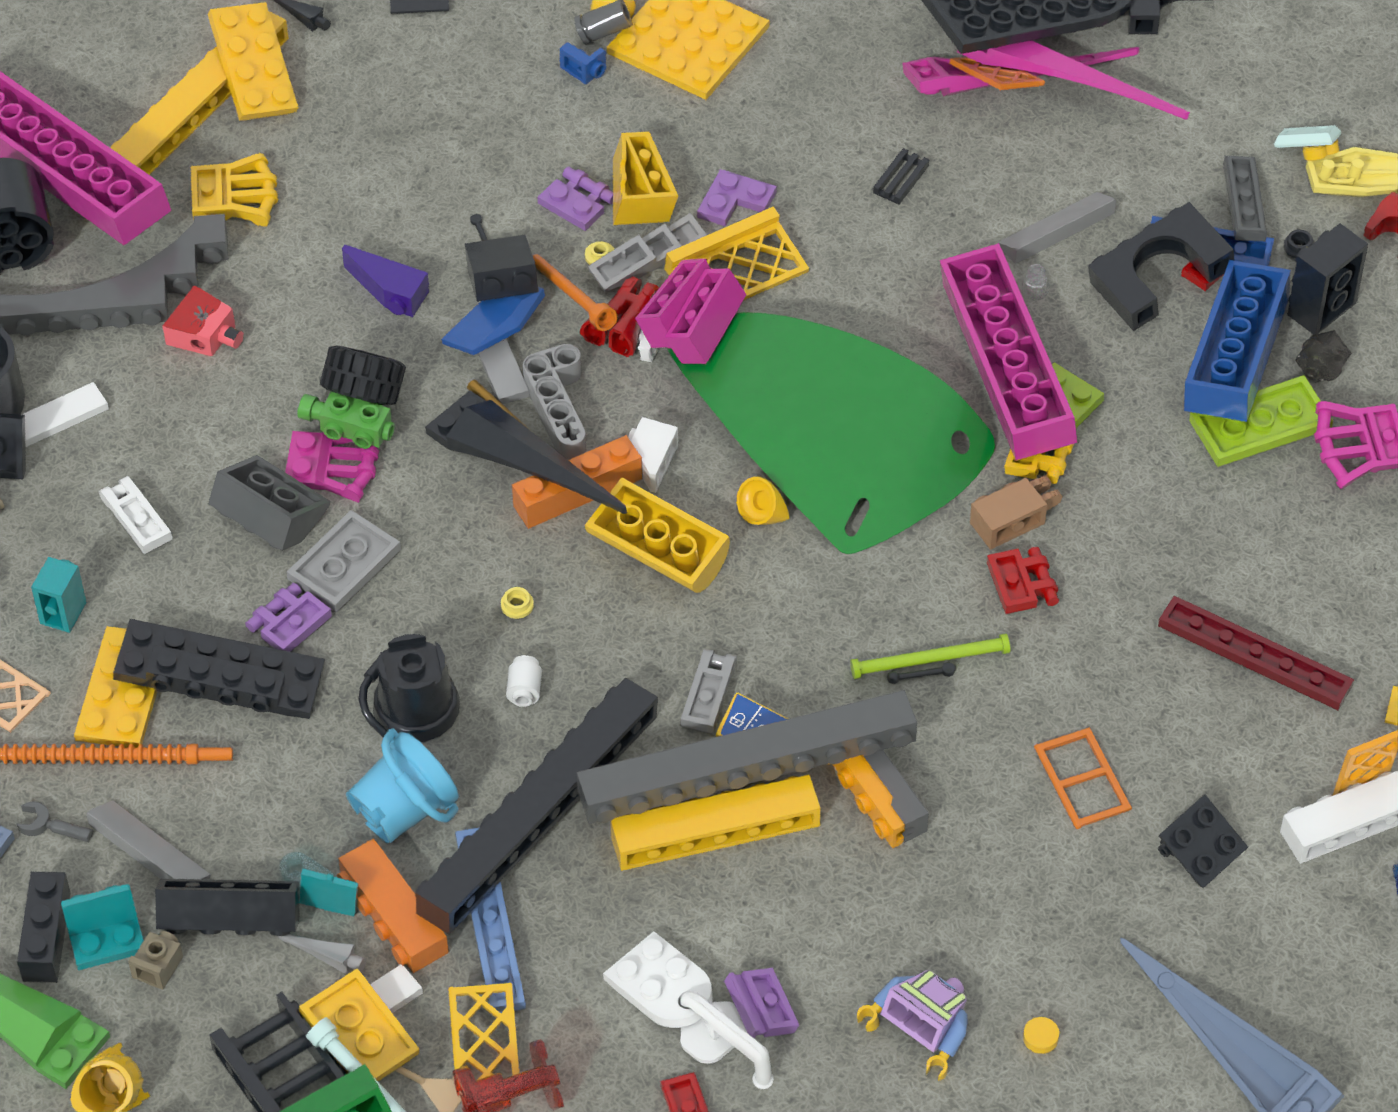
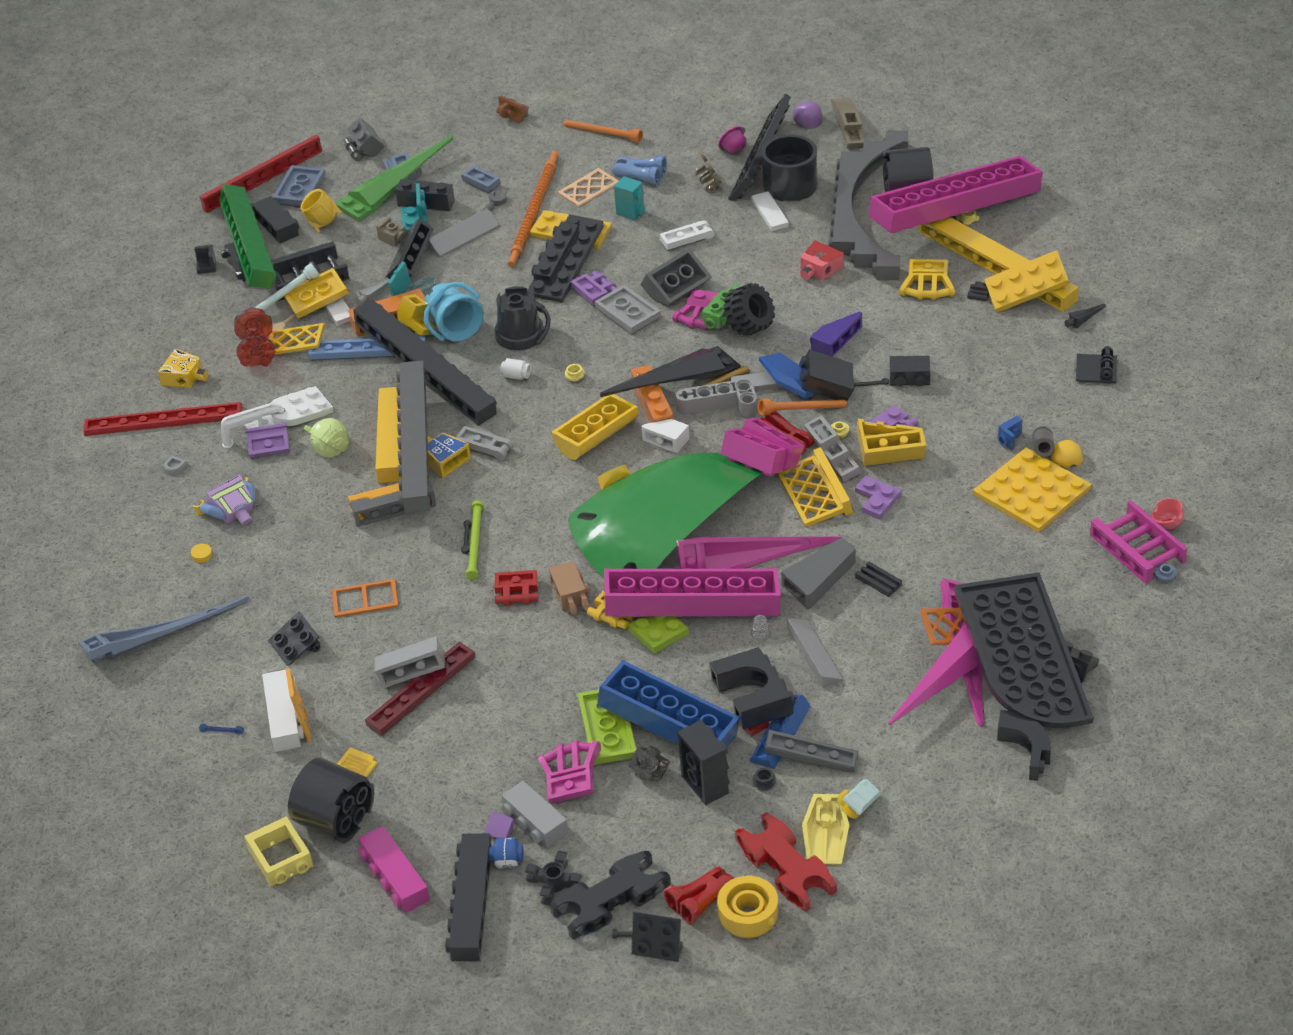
camera: 105 degrees right, 10 degrees down
(256, 130) = (978, 291): none -> black plate
(419, 844) = (411, 314): none -> yellow brick
(461, 184) = (909, 370): none -> black brick
(746, 904) = (328, 437): none -> yellowish green helmet
(901, 333) = (742, 551): none -> dark pink plate
(910, 231) = (818, 572): none -> dark grey slope
(1223, 663) = (409, 662): none -> light grey brick

